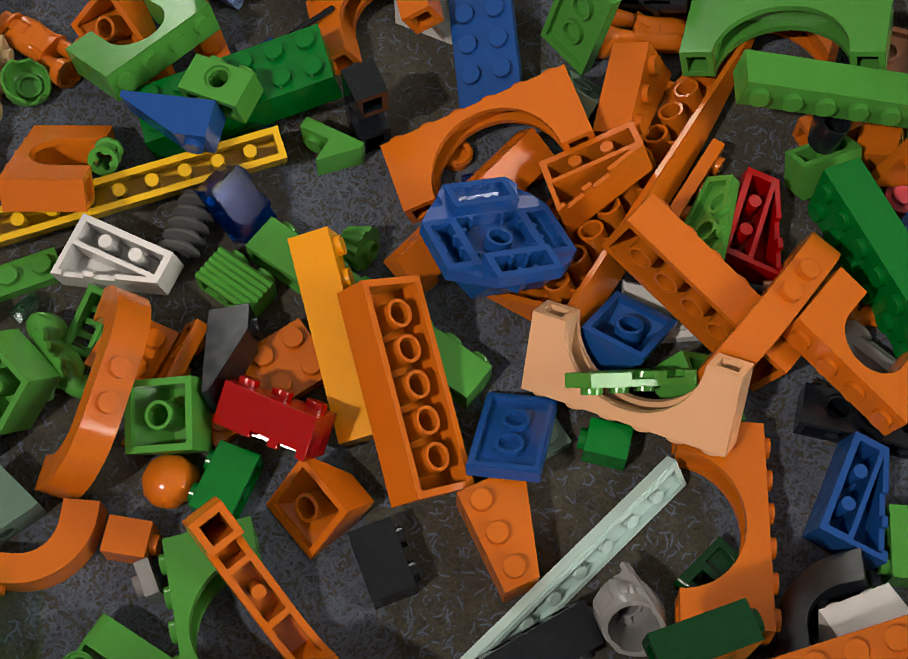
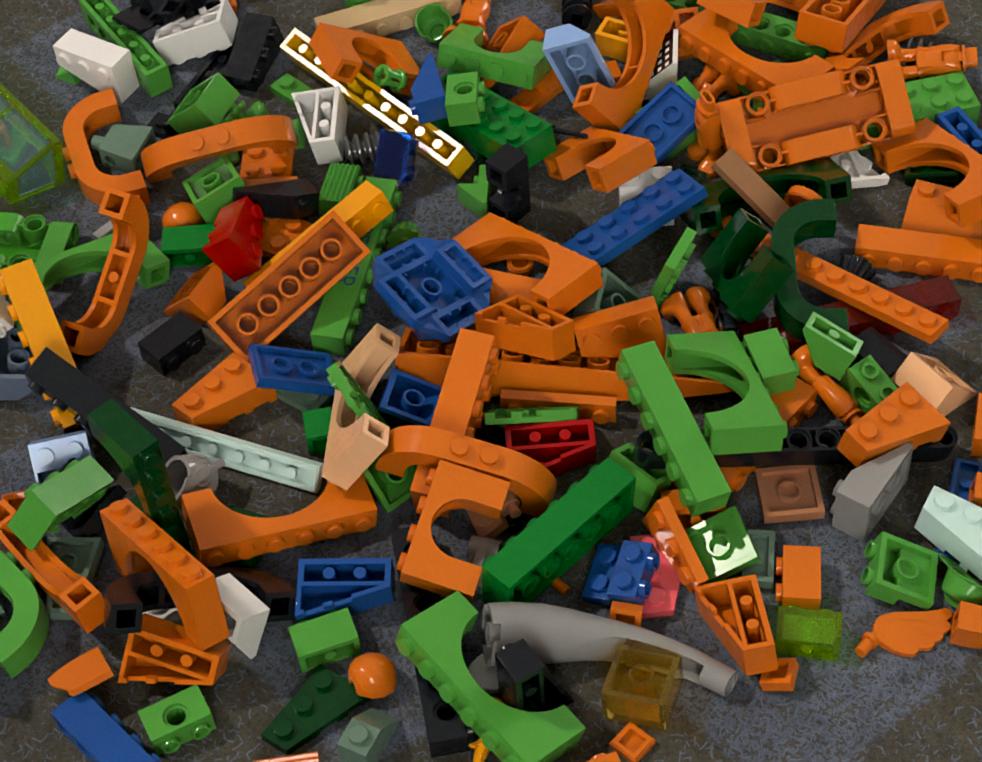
camera: 70 degrees right, 15 degrees down
(19, 312) = (268, 101): clear green tile -> none

